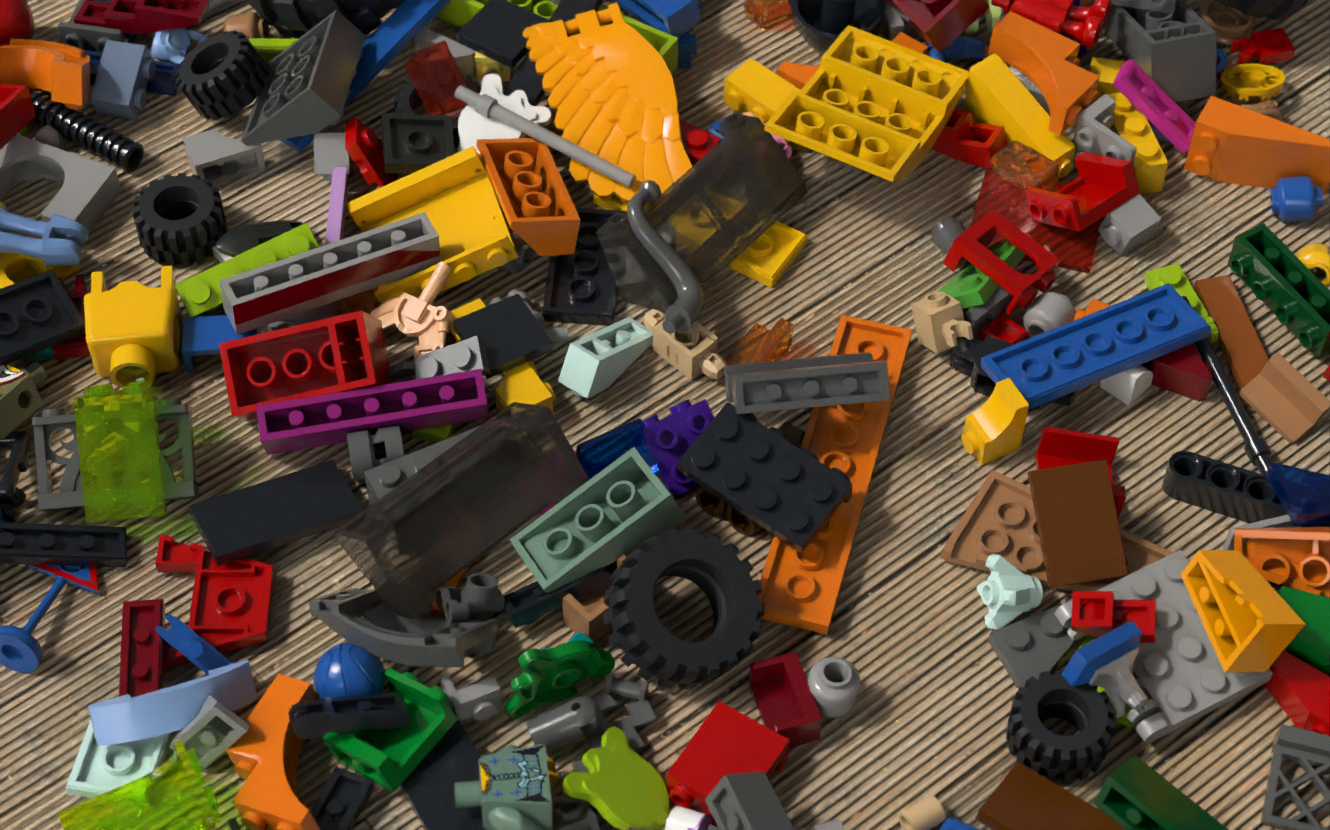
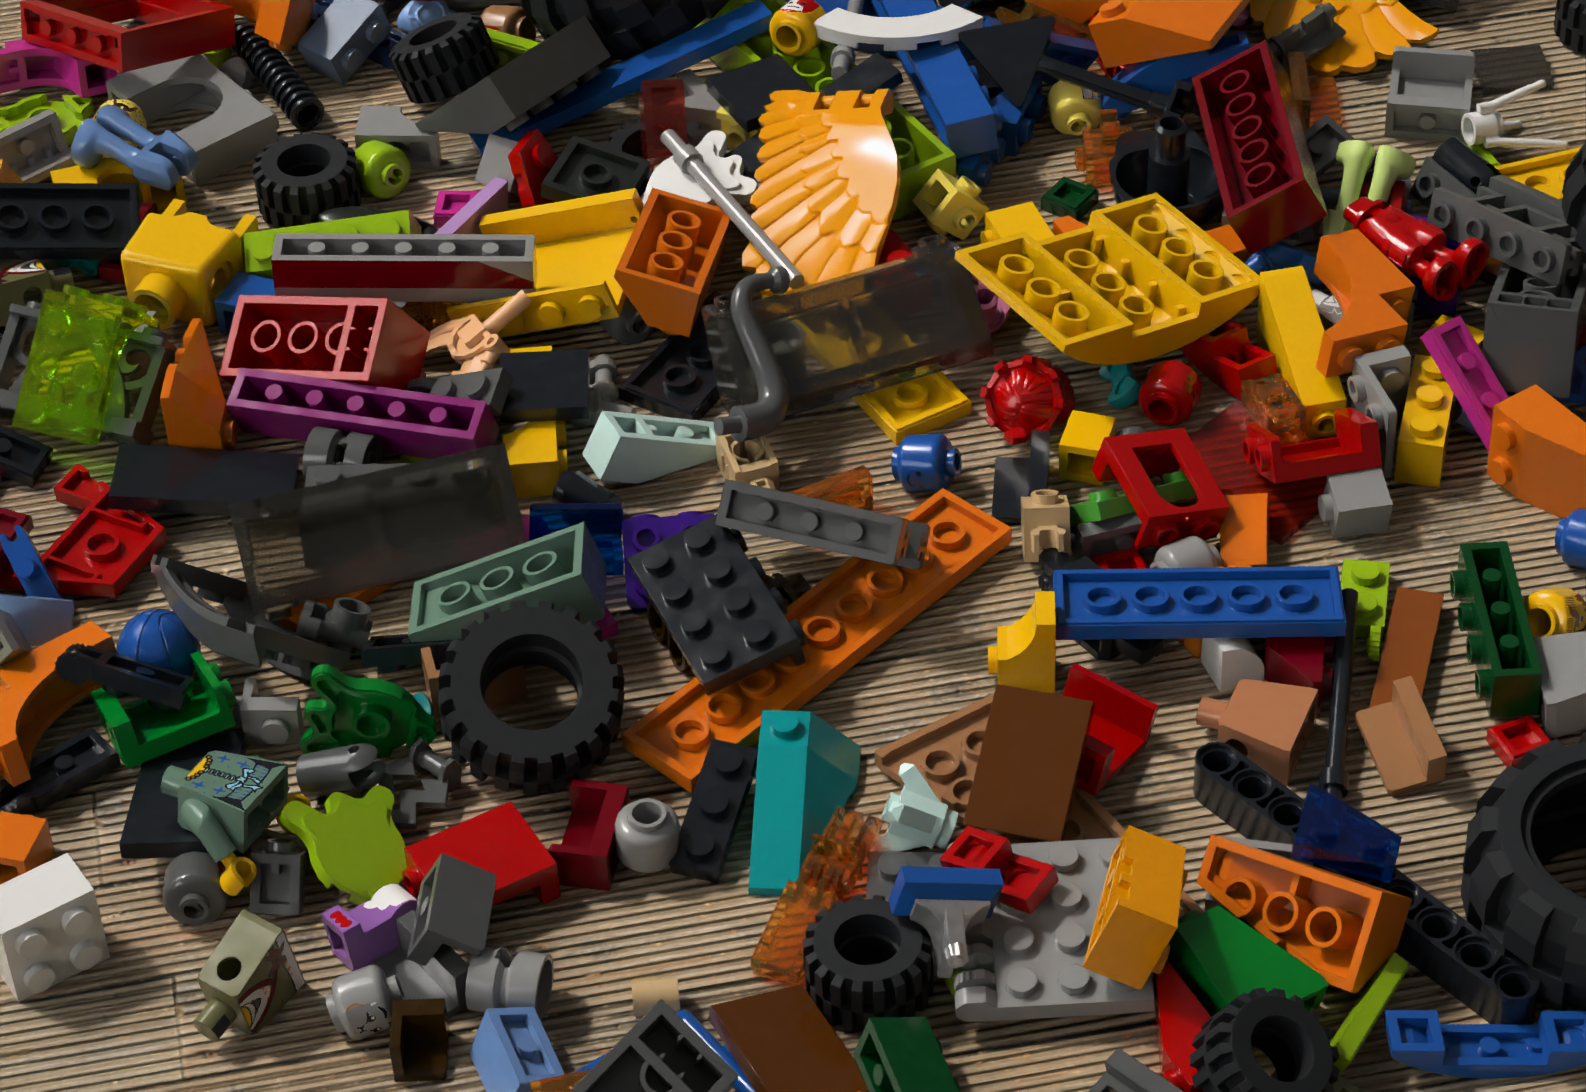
camera: 30 degrees right, 10 degrees down
(227, 445) = (193, 397): none -> orange wedge
(234, 185) = (382, 169): none -> lime head
(307, 201) = (449, 203): none -> dark pink tile
(583, 416) = (581, 489): none -> black cone
(693, 78) = (951, 204): none -> light yellow brick
(761, 45) = (1069, 198): none -> dark green tile
(815, 297) = (925, 463): none -> blue head
(850, 219) = (1027, 397): none -> red hair
(863, 642) = (714, 810): none -> black plate
(889, 287) = (1019, 477): none -> black panel
(908, 189) = (1125, 388): none -> teal piece
(909, 611) = (800, 781): none -> teal wedge
(917, 244) = (1081, 445): none -> yellow brick
(946, 181) = (1170, 393): none -> red head
(981, 701) = (824, 878): none -> clear orange arm
(1073, 275) = (1246, 530): none -> orange slope
(1186, 422) = (1264, 723): none -> nougat torso

